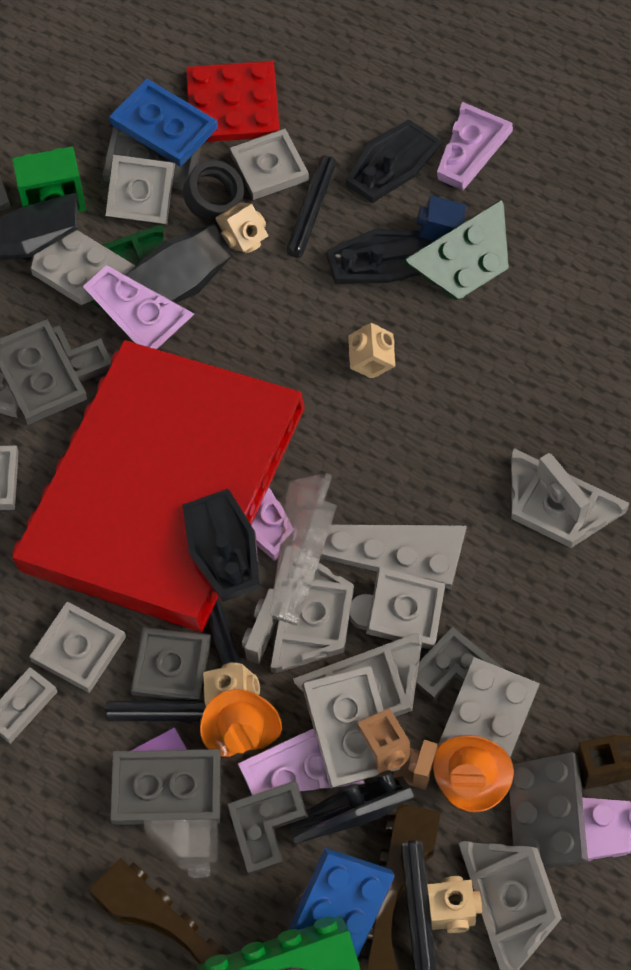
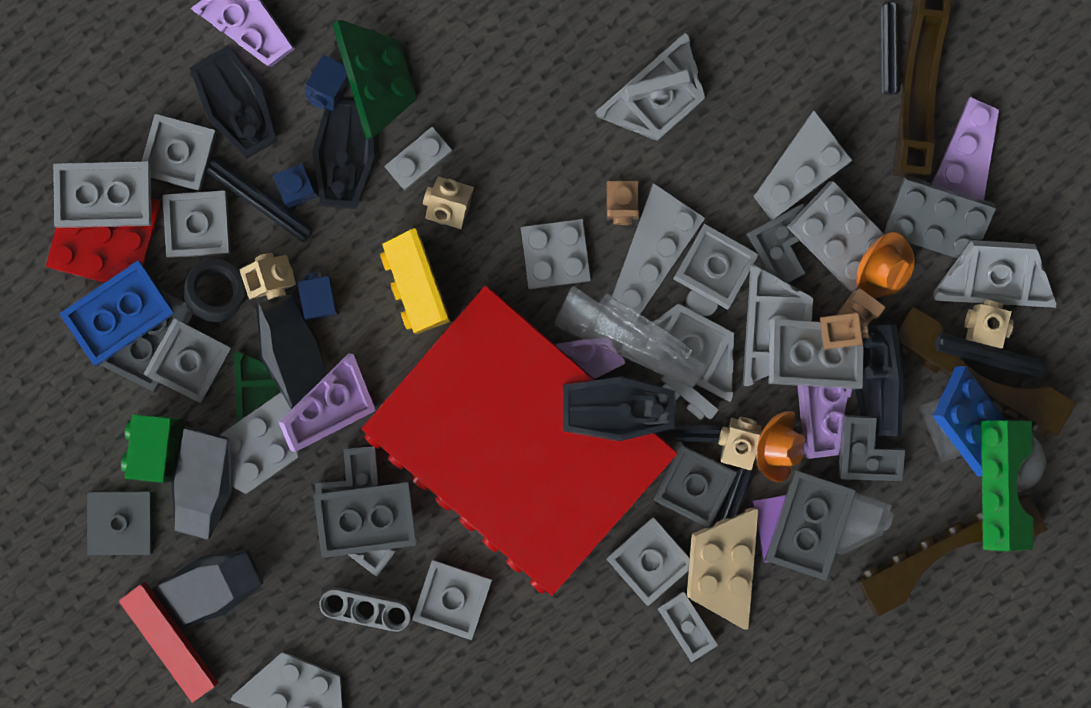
camera: 70 degrees left, 25 degrees up
(93, 718) = (724, 566): none -> tan wing
(238, 275) = (317, 296): none -> dark blue brick
(266, 80) = (102, 194): none -> light grey plate
(287, 346) = (414, 282): none -> yellow slope
(328, 130) = (179, 151): none -> light grey plate
(335, 223) = (295, 186): none -> dark blue brick
(360, 463) = (555, 254): none -> light grey plate
(404, 319) = (418, 158): none -> light grey plate
(436, 505) = (622, 202): none -> medium nougat bracket
(542, 654) = (804, 166): none -> light grey wedge

